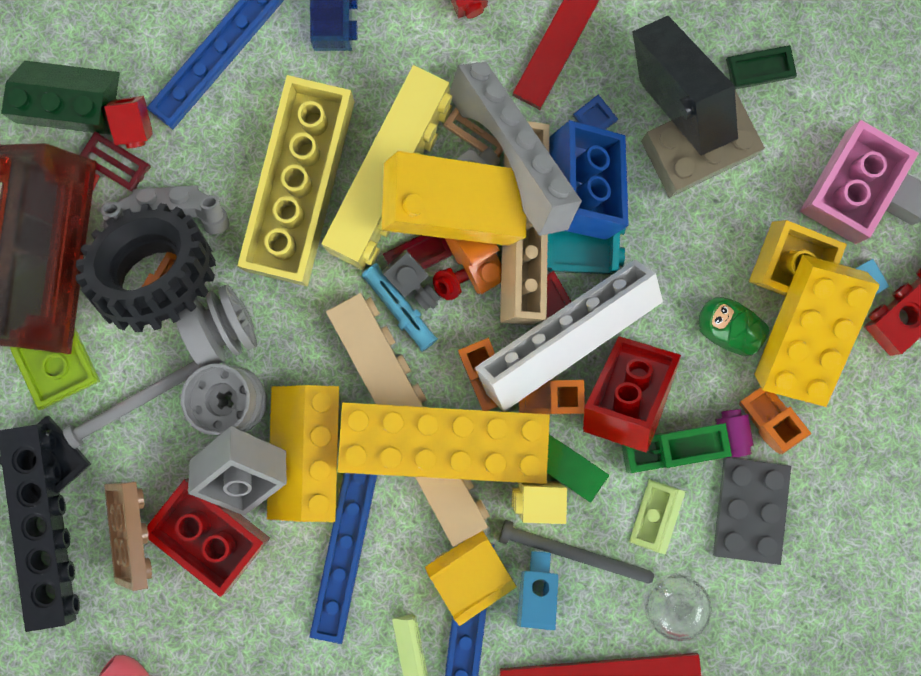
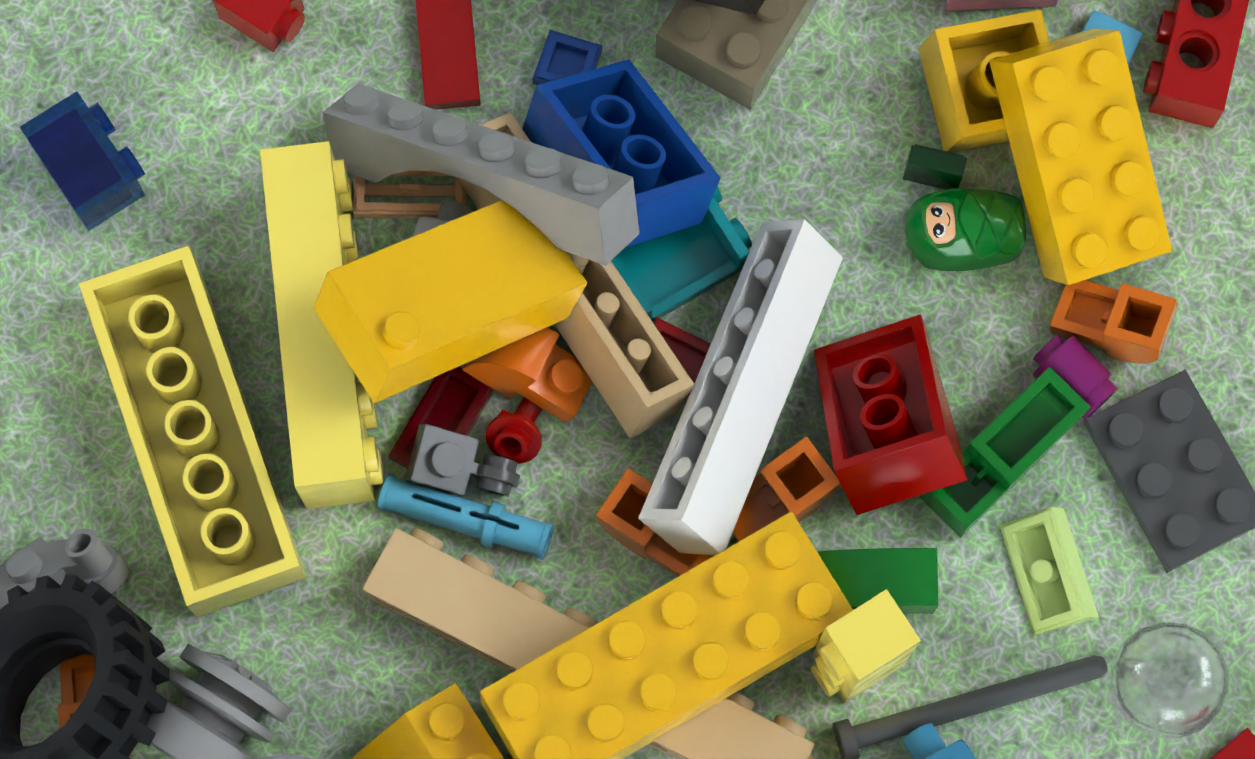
camera: 35 degrees left, 10 degrees down
(738, 286) = (934, 167): none -> dark green tile

